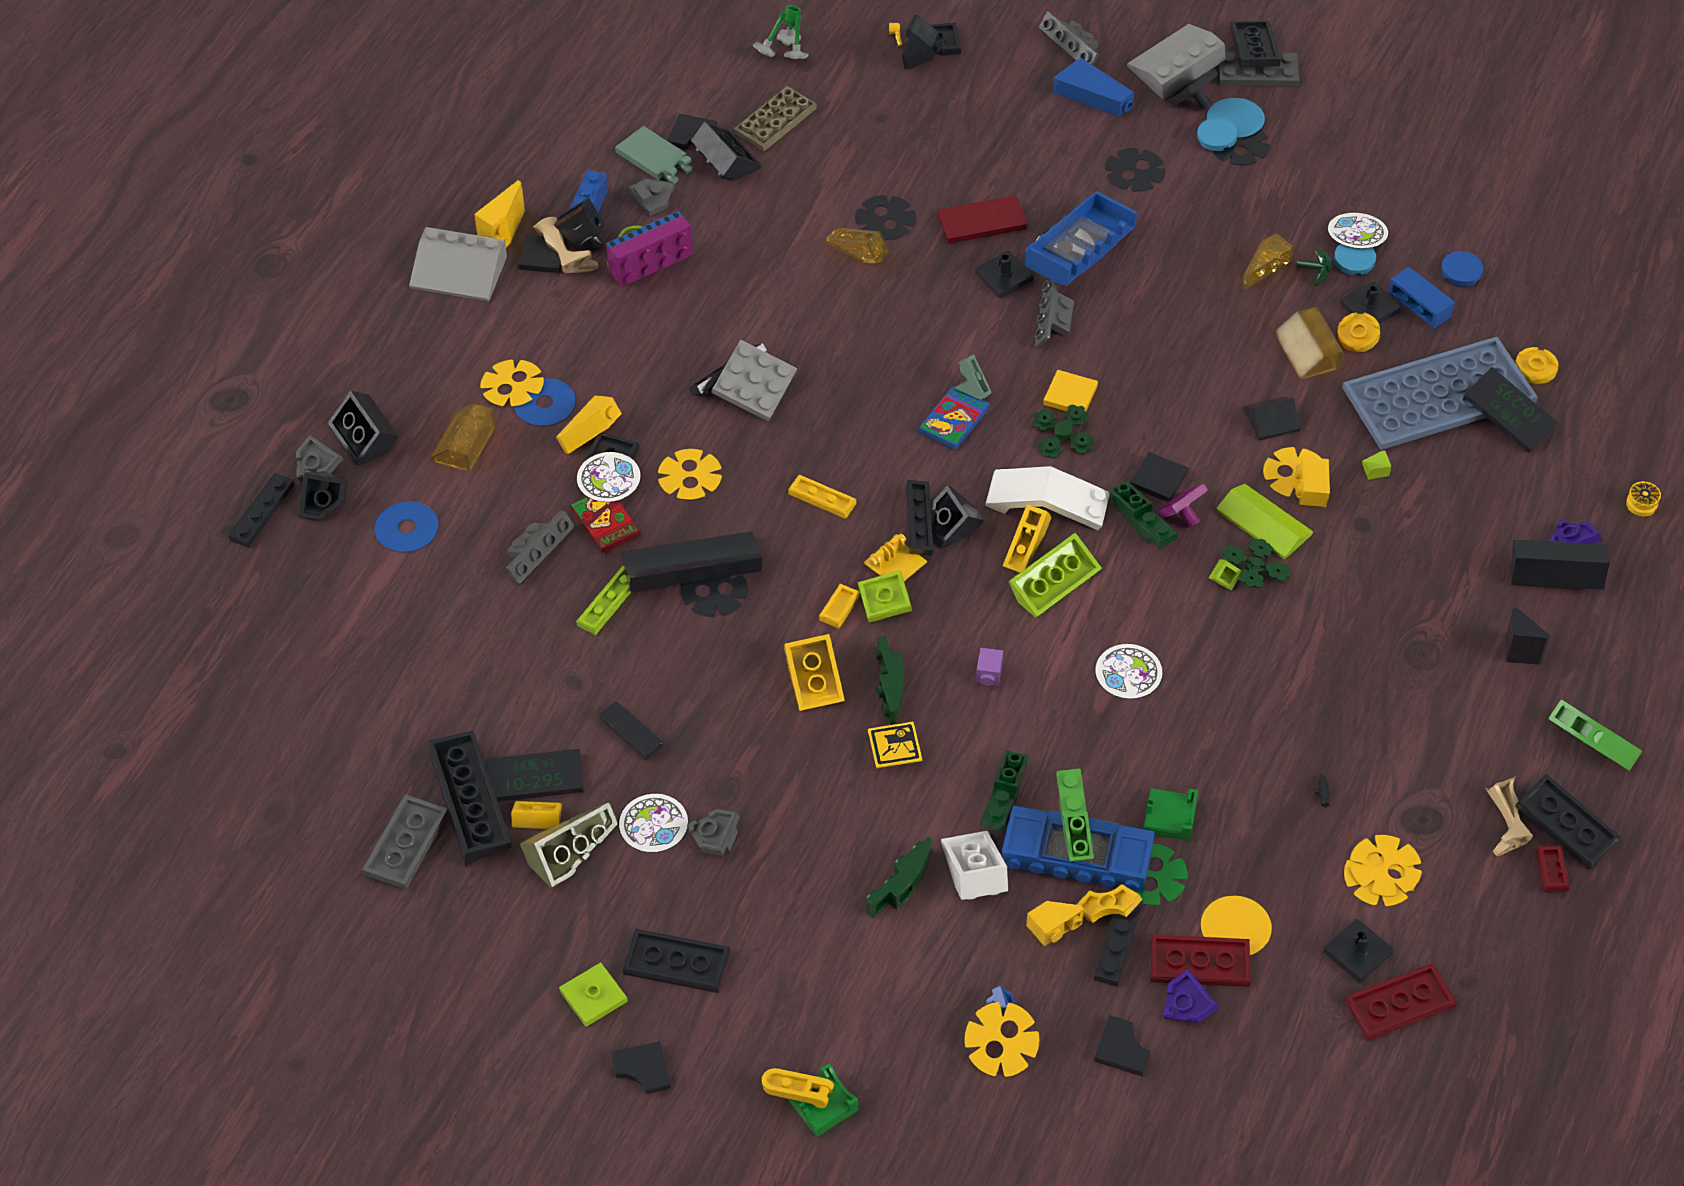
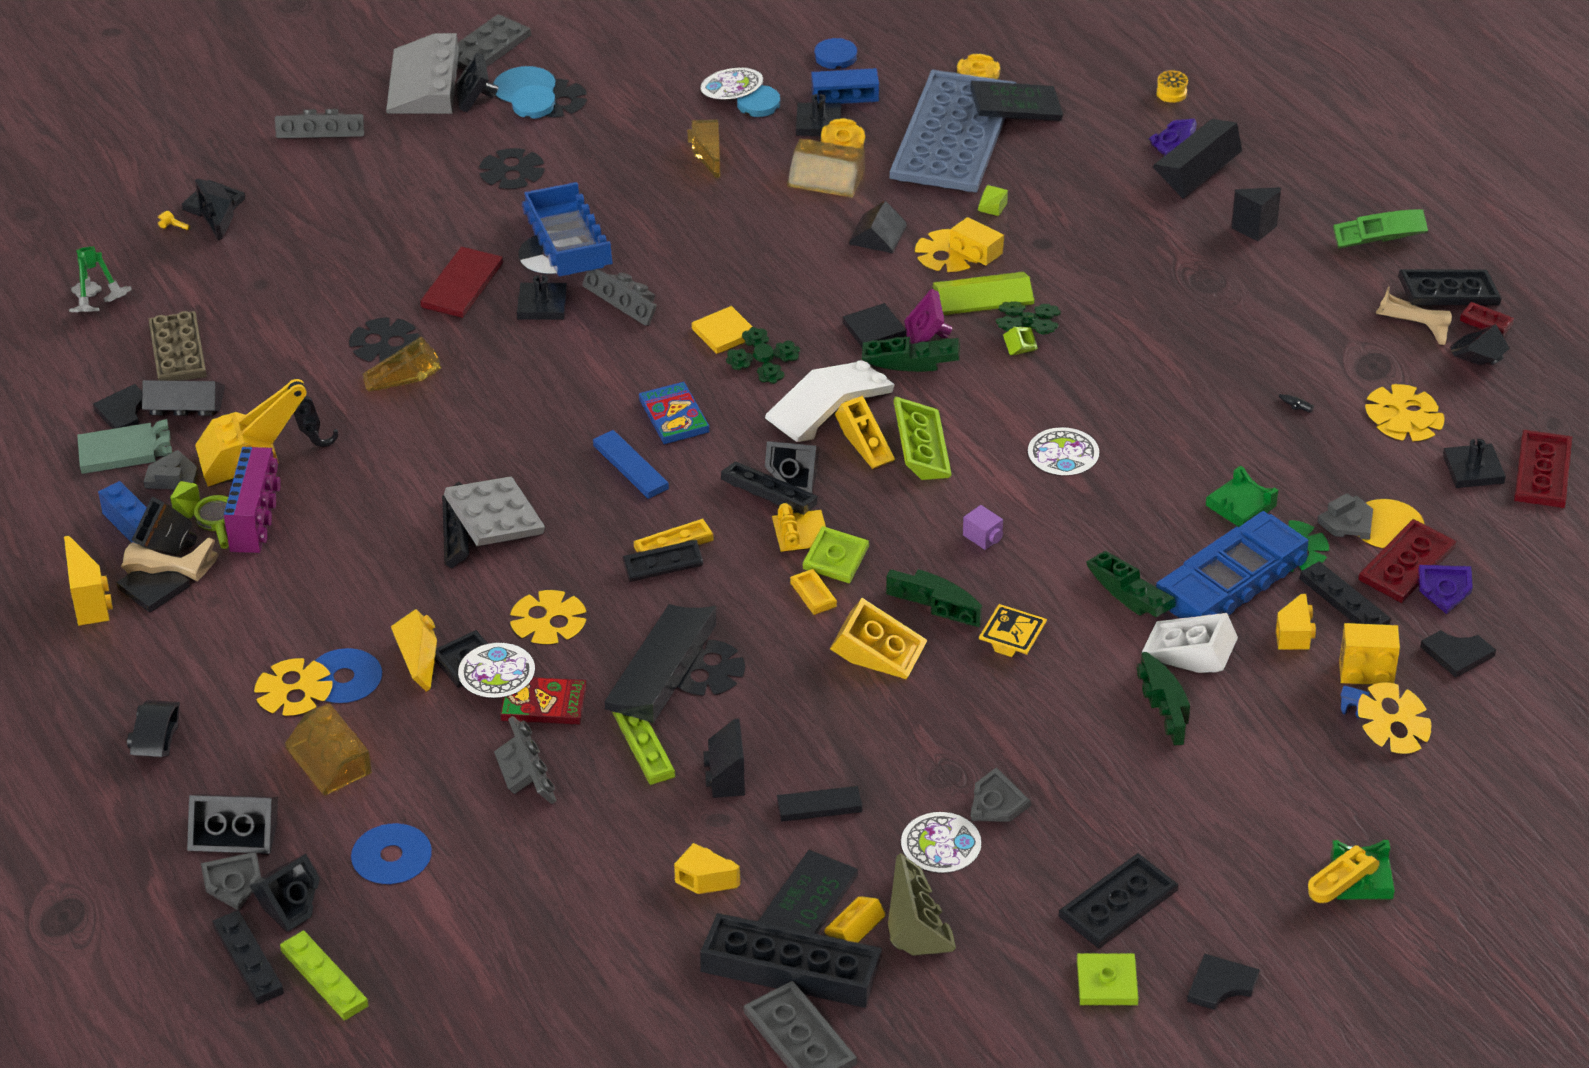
camera: 55 degrees left, 10 degrees down
(274, 557) = (324, 975): none -> lime plate
(408, 337) = (154, 728): none -> black brick
(458, 264) = (96, 648): light grey slope -> none
(511, 700) = (705, 871): none -> yellow slope
(619, 655) = (725, 762): none -> black slope
(628, 216) = (185, 498): none -> lime slope
(710, 210) = (226, 435): none -> yellow slope
(793, 502) = (662, 560): none -> black tile
(878, 426) = (630, 464): none -> blue tile
(976, 383) = (651, 376): sand green slope -> none
(1050, 985) = (1369, 653): none -> yellow brick
(1074, 815) = (1217, 548): bright green slope -> none
(1093, 87) = (396, 139): blue slope -> none
(1118, 901) = (1312, 572): yellow tile -> none
(1213, 895) = (1347, 516): none -> dark grey plate
(1255, 43) = (469, 27): black tile -> none
(1323, 265) = (749, 118): dark green plant -> none
(1504, 880) = (1481, 346): none -> black slope

